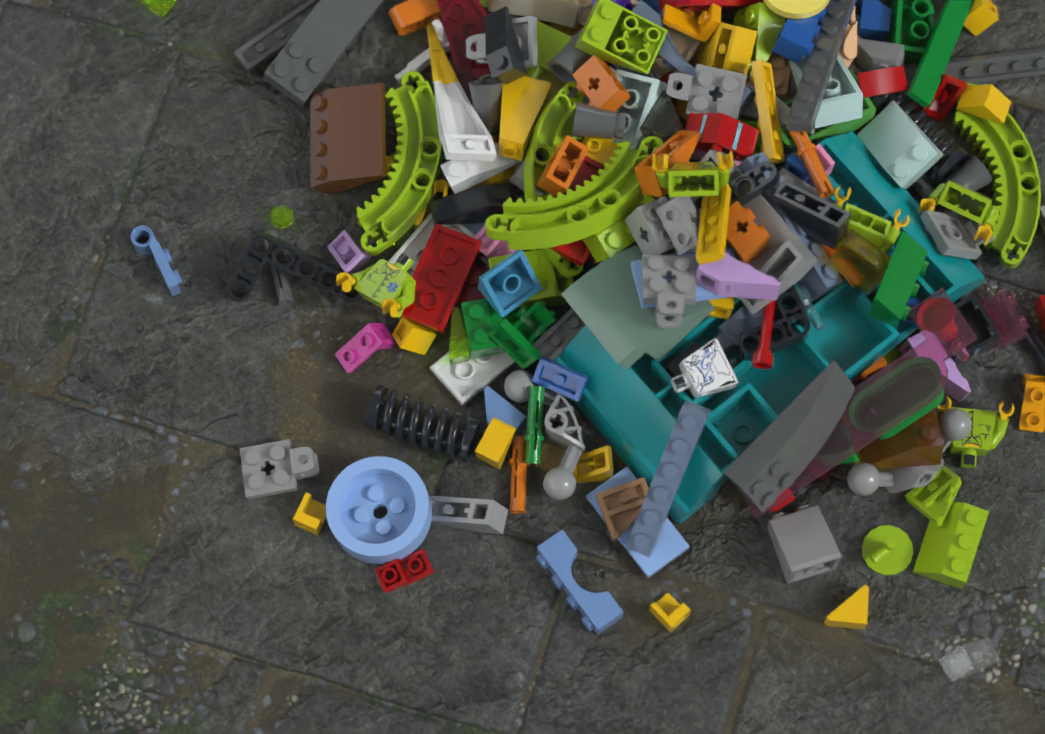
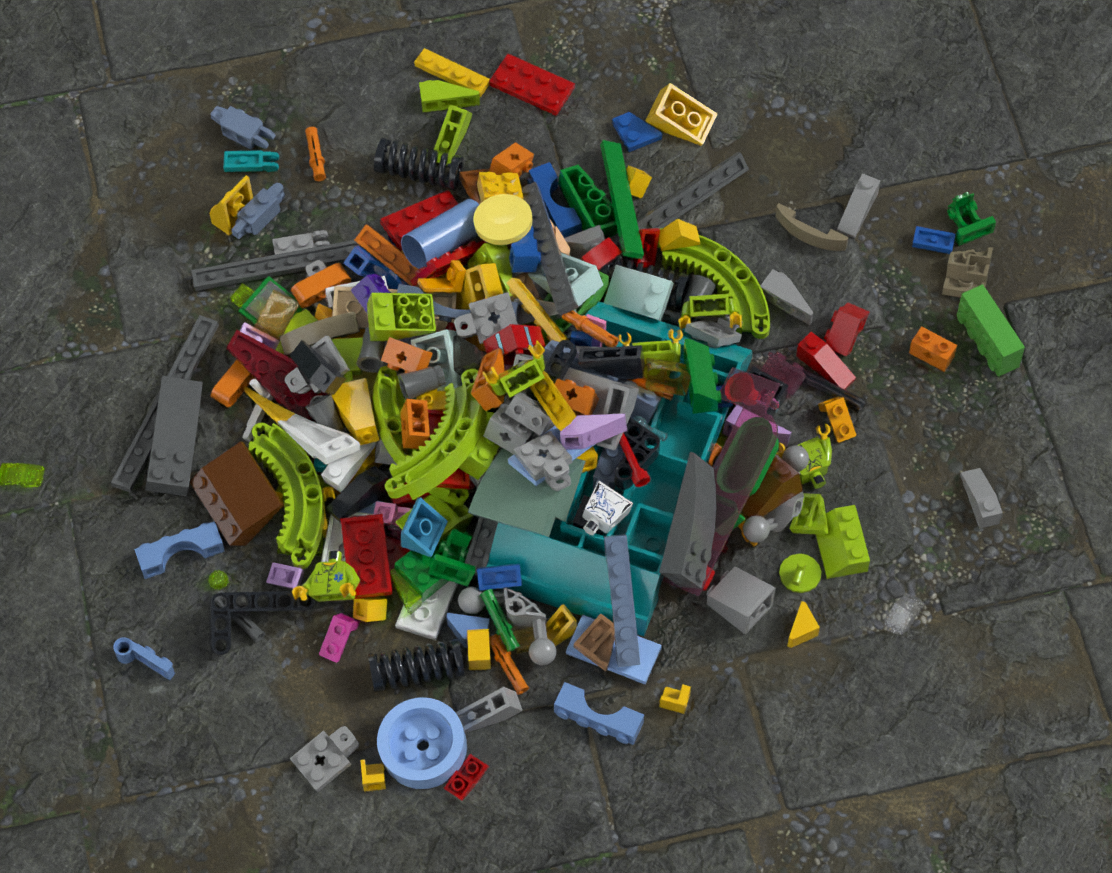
camera: 30 degrees left, 10 degrees down
(229, 157) = (154, 556): none -> medium blue arch

